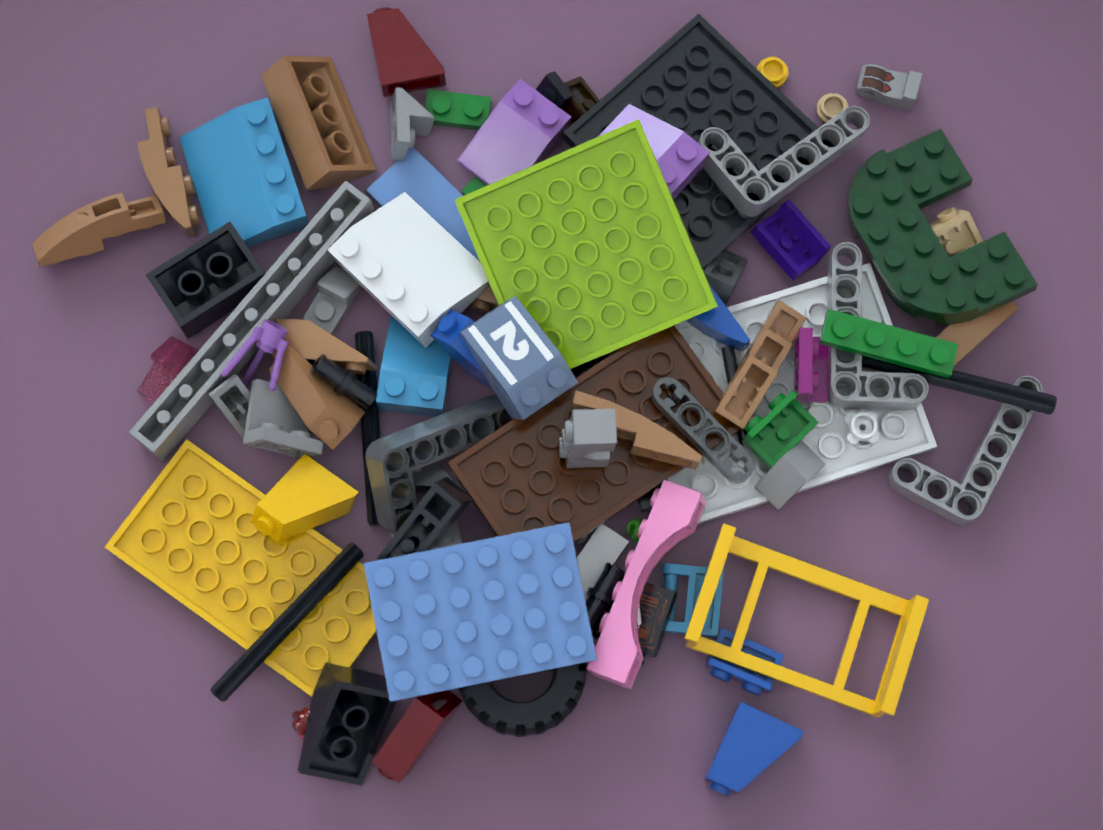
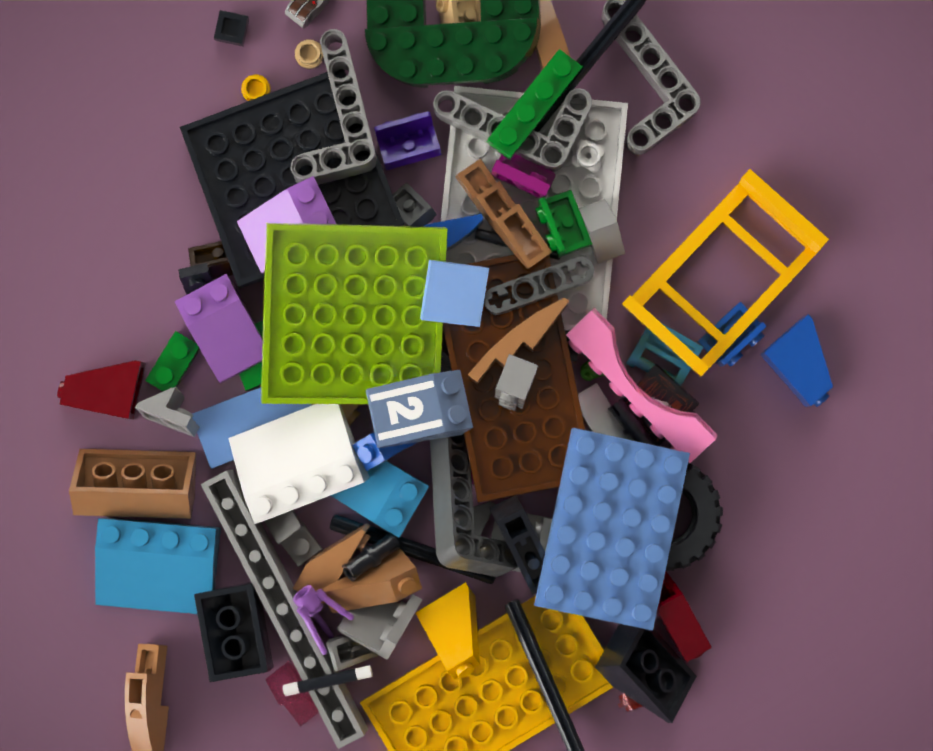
camera: 60 degrees left, 10 degrees up
(167, 178) = (135, 630): medium nougat slope -> none
(195, 389) = (327, 680): none -> black bar
(654, 344) = (454, 293): none -> light blue tile
(821, 23) = (231, 28): none -> black plate

